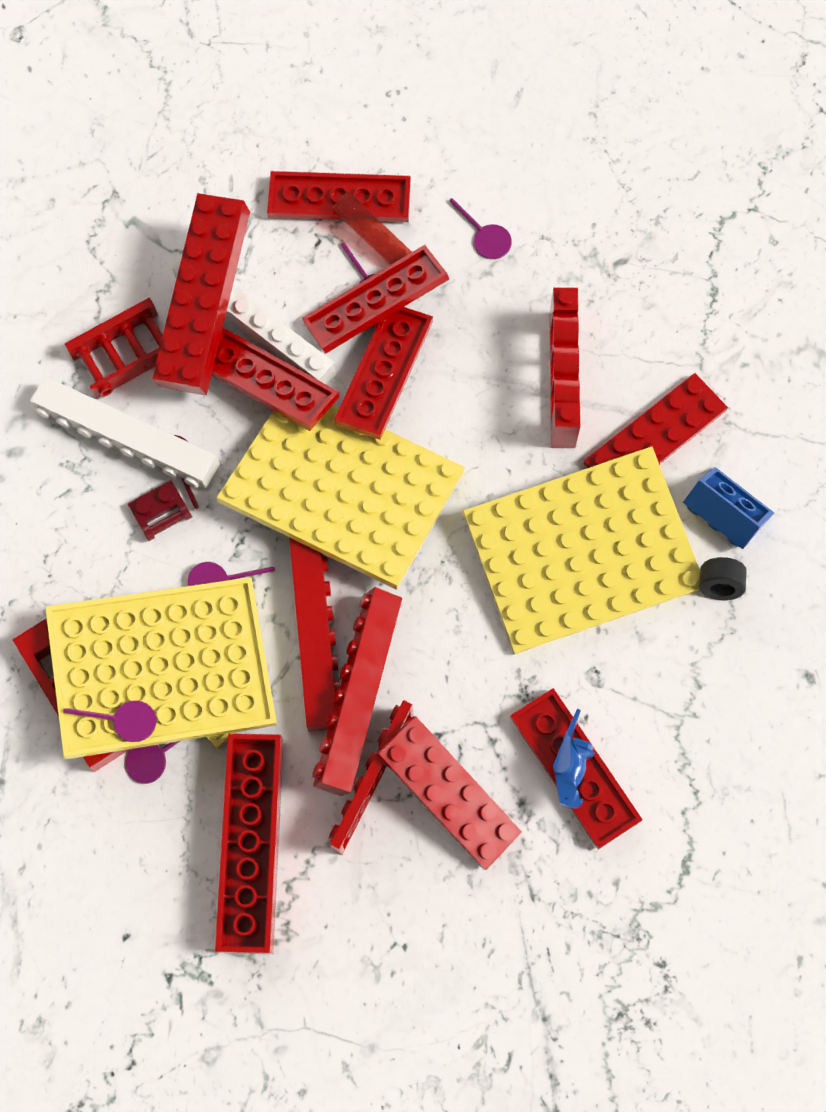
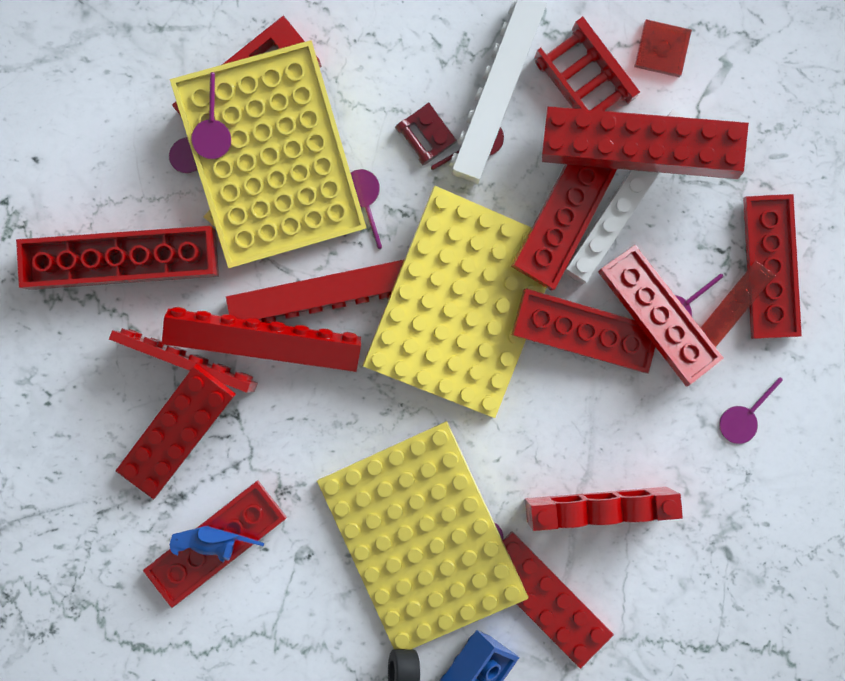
camera: 75 degrees right, 15 degrees up
(107, 277) = (662, 48): none -> clear red tile

